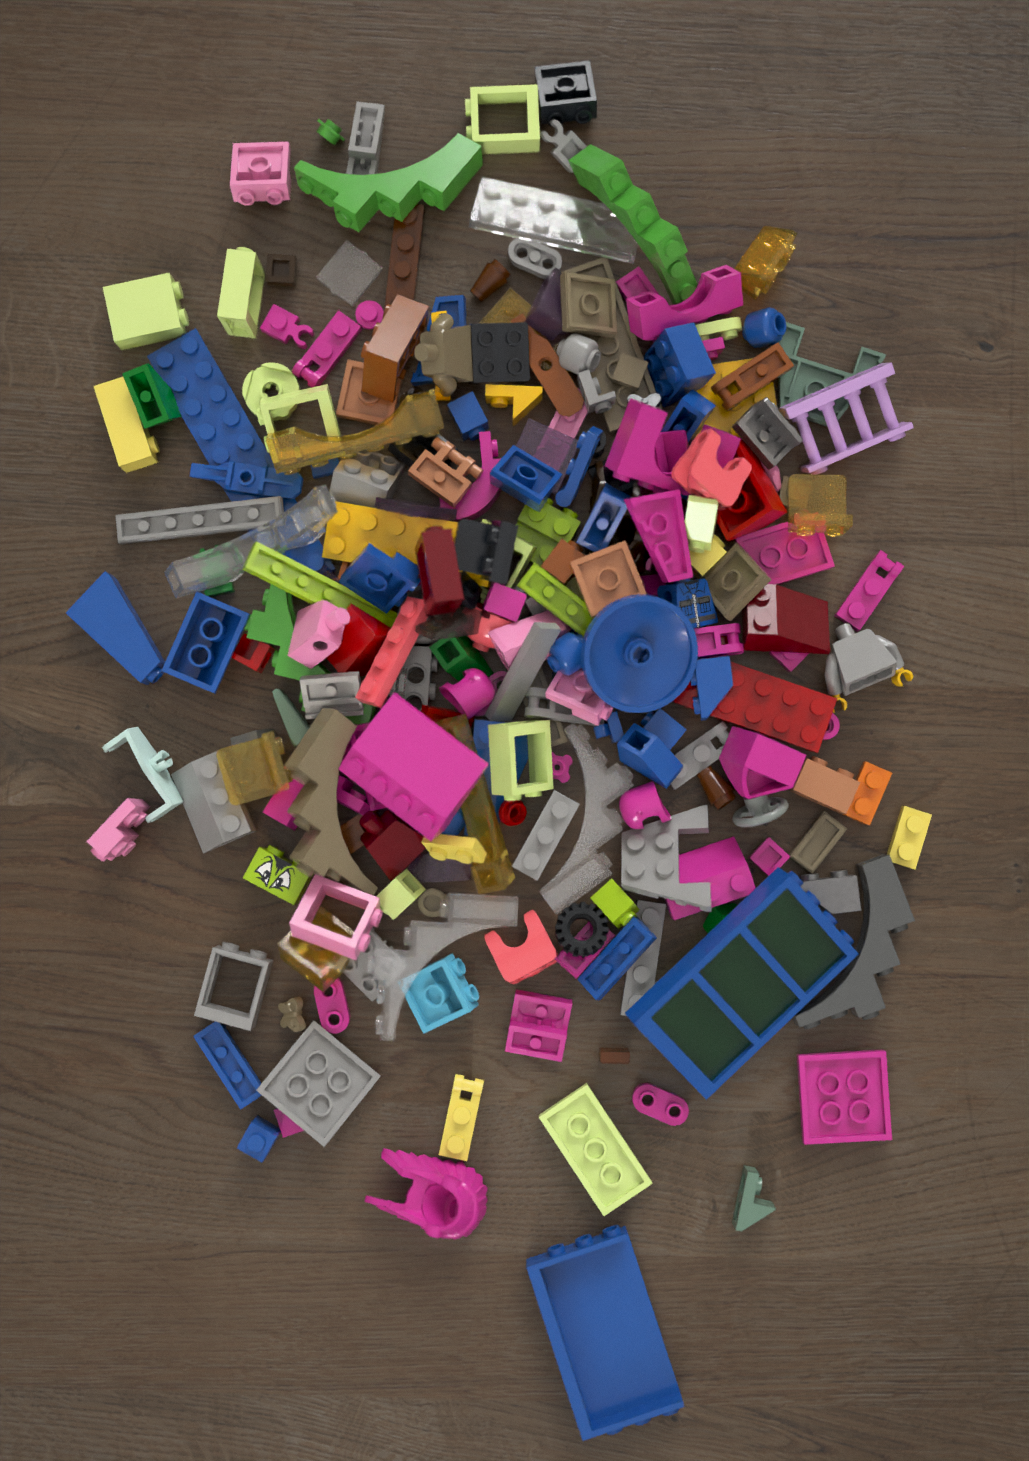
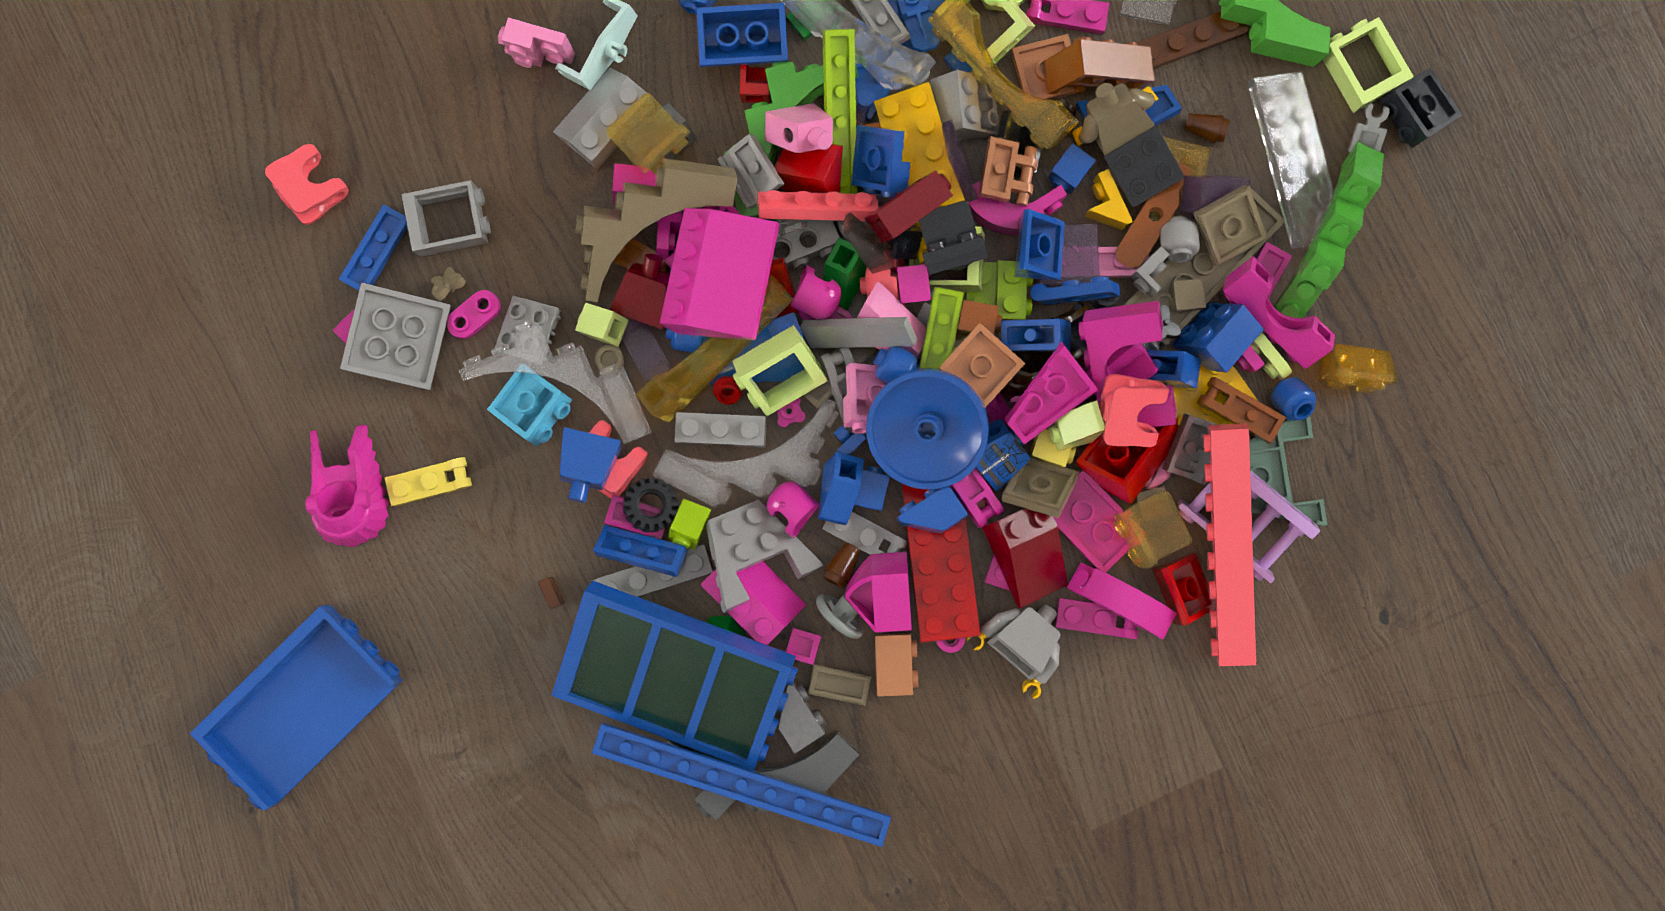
camera: 55 degrees right, 0 degrees up
(144, 1109) = (291, 183): none -> coral piece
(259, 1138) = (320, 308): blue brick -> none
(277, 874) = (563, 203): lime brick -> none
(292, 718) = (715, 145): sand green slope -> none
(309, 905) = (550, 247): bright pink window -> none
(312, 961) = (517, 275): clear yellow slope -> none
(368, 314) = (1120, 31): dark pink plate -> none
(456, 848) = (667, 352): light yellow plate -> none
(519, 966) = (586, 461): none -> blue torso
(536, 256) = (1250, 158): light grey plate -> none
(538, 1025) = (544, 511): dark pink slope -> none
(595, 1149) = (458, 617): yellowish green plate -> none
(661, 1104) = (528, 657): dark pink plate -> none
(747, 1207) = (473, 784): sand green slope -> none
(844, 1097) = (616, 823): dark pink plate -> none
(865, 443) = (1231, 544): none -> coral brick
(865, 561) = (1122, 600): none -> dark pink arch
(866, 970) = (741, 784): none -> blue plate
(869, 793) = (908, 709): orange plate -> none
(881, 503) = (1184, 589): none -> red slope
(908, 837) = (886, 767): light yellow plate -> none

